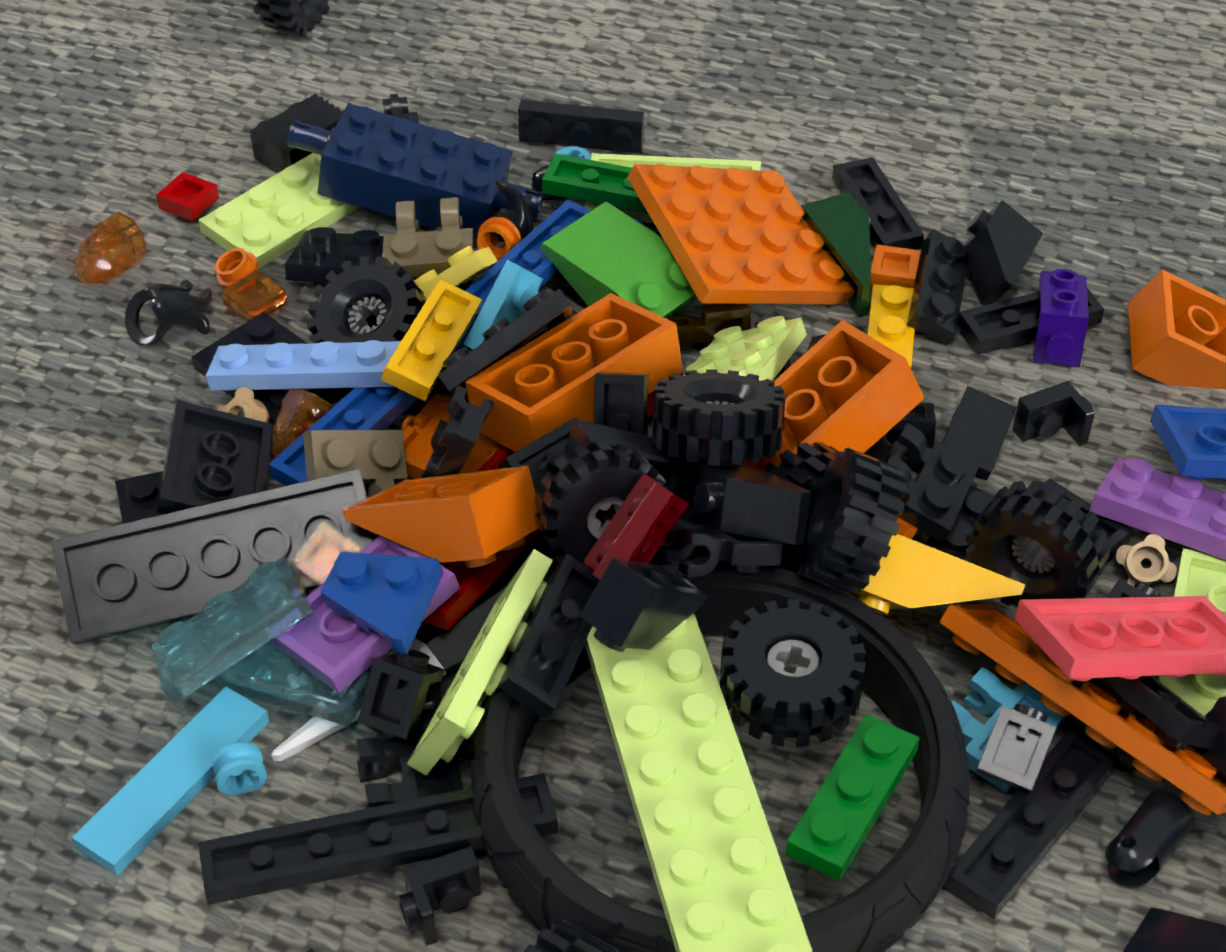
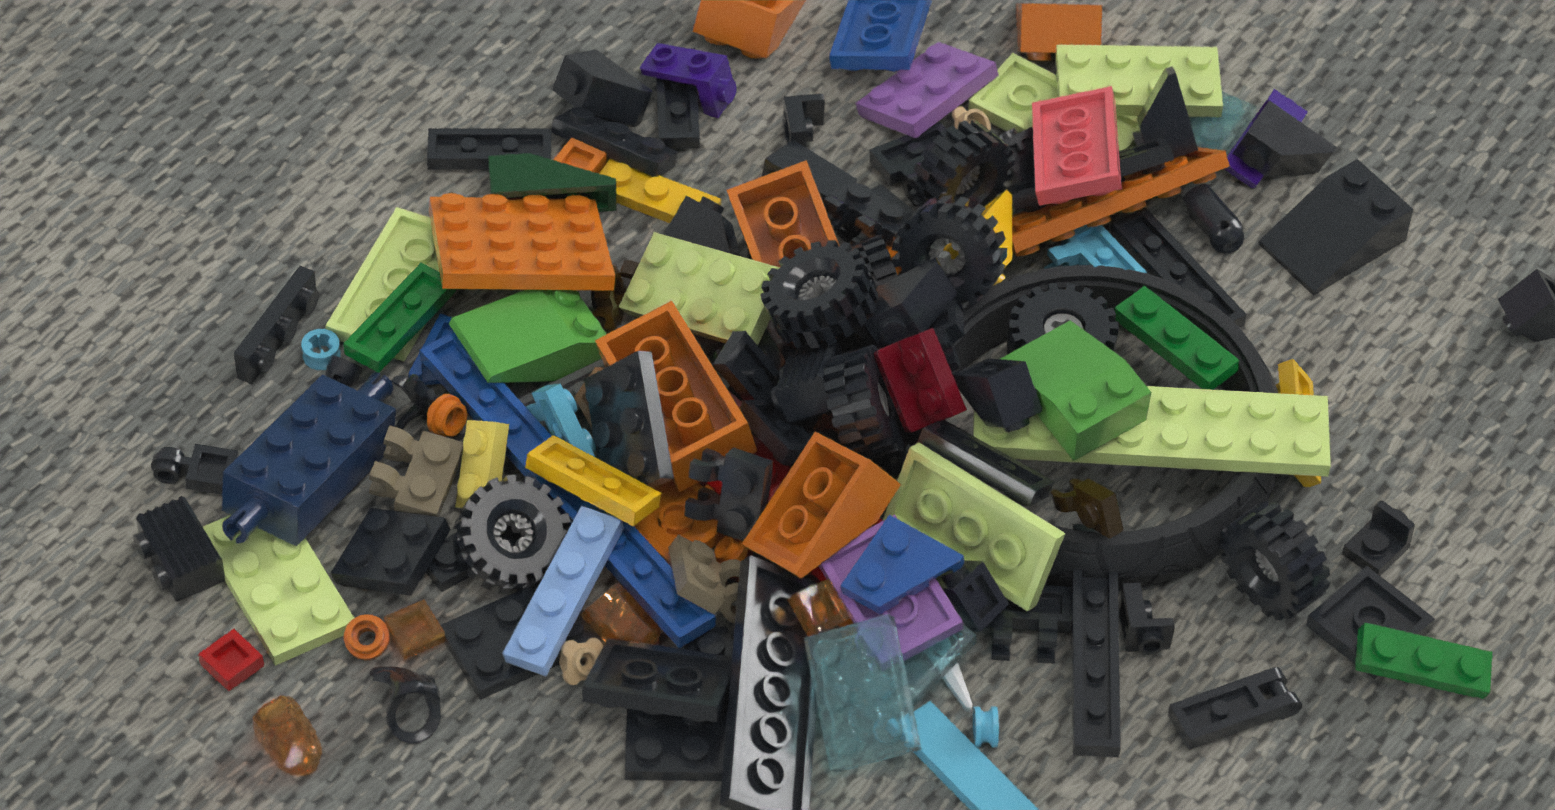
camera: 75 degrees left, 5 degrees up
(523, 755) = (1094, 504): none -> dark brown plate
(678, 680) = (1083, 388): none -> bright green slope
(1017, 747) = (1133, 248): bracket -> none

